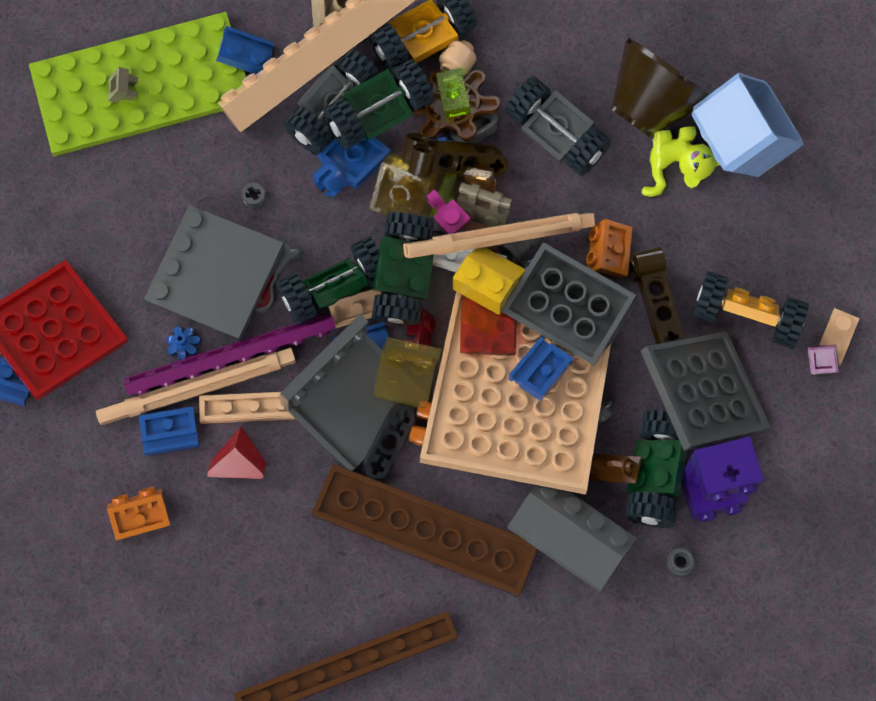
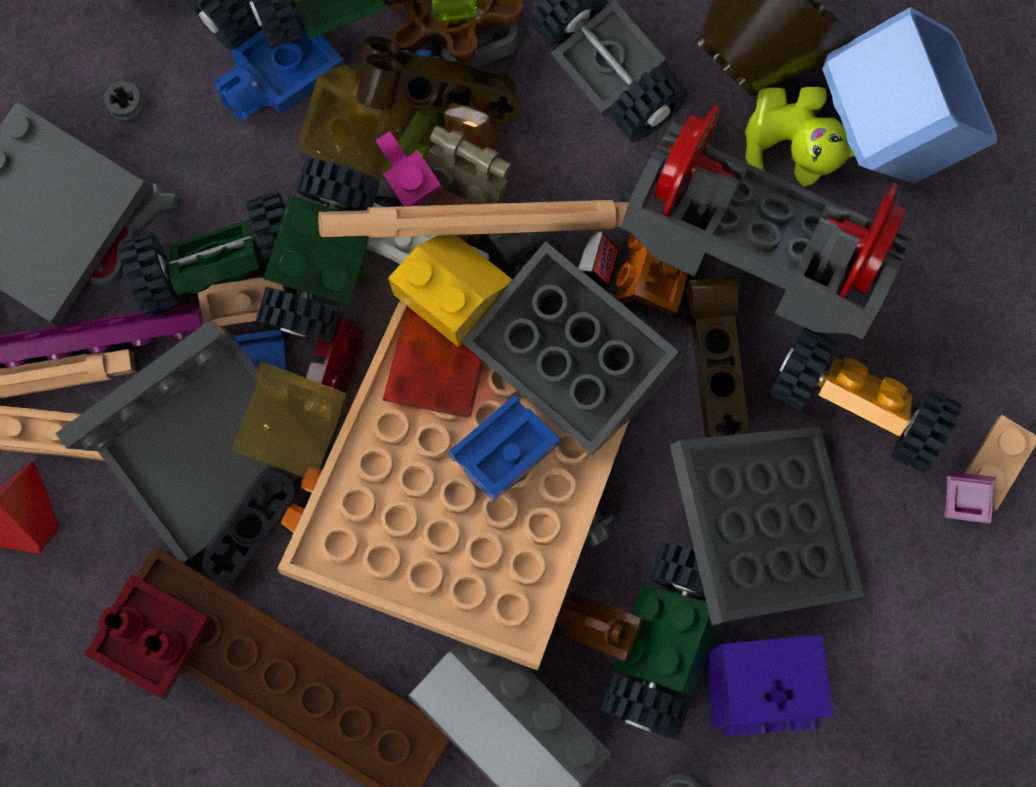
camera: 15 degrees right, 5 degrees up
(342, 515) = (147, 636): none -> dark red plate
(574, 247) = (599, 258): none -> tile
(675, 216) = (766, 230): none -> dark grey piece

